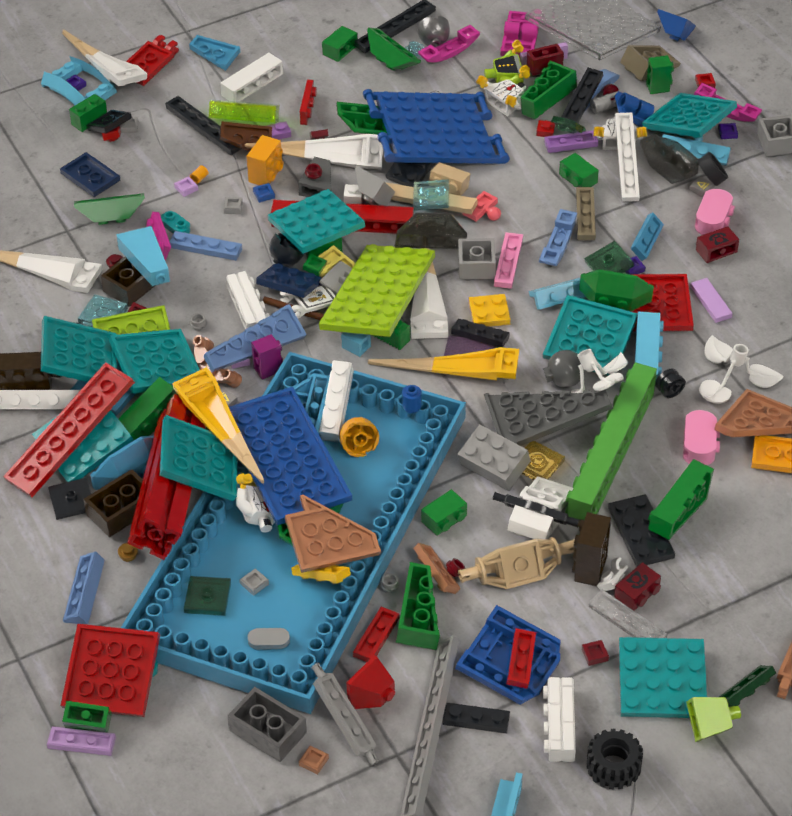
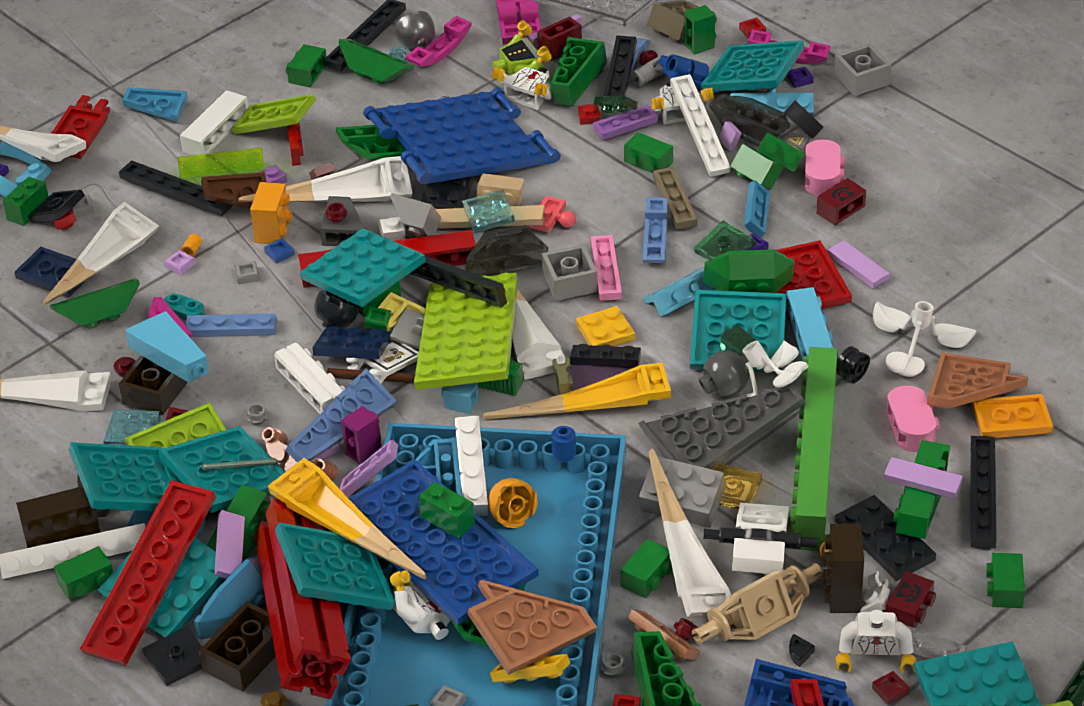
camera: 15 degrees left, 5 degrees down
(25, 418) = (83, 573): none -> green brick
(133, 421) = (229, 543): none -> lavender tile
(147, 155) = (120, 235): none -> white plate
(167, 359) = (239, 464): none -> sand green axle
(261, 385) = (369, 468): none -> lavender tile
(297, 79) = (273, 114): none -> lime tile
(298, 433) = (446, 509): none -> green brick
(387, 248) = (462, 281): none -> black plate
(439, 346) = (563, 381): none -> olive plate
(477, 527) = (693, 571): none -> white plate
(538, 605) = (800, 650): none -> black tile
(581, 342) = (736, 340): none -> clear green brick
(595, 608) = (875, 635): none -> white torso
(649, 170) = (729, 136): none -> lavender tile
(659, 201) = (756, 166): none -> brick
(681, 490) = (923, 478): none -> lavender tile
(682, 192) = (780, 151): none -> green brick
(721, 588) = (1007, 580): none -> green brick
(733, 511) = (982, 492): none -> black plate

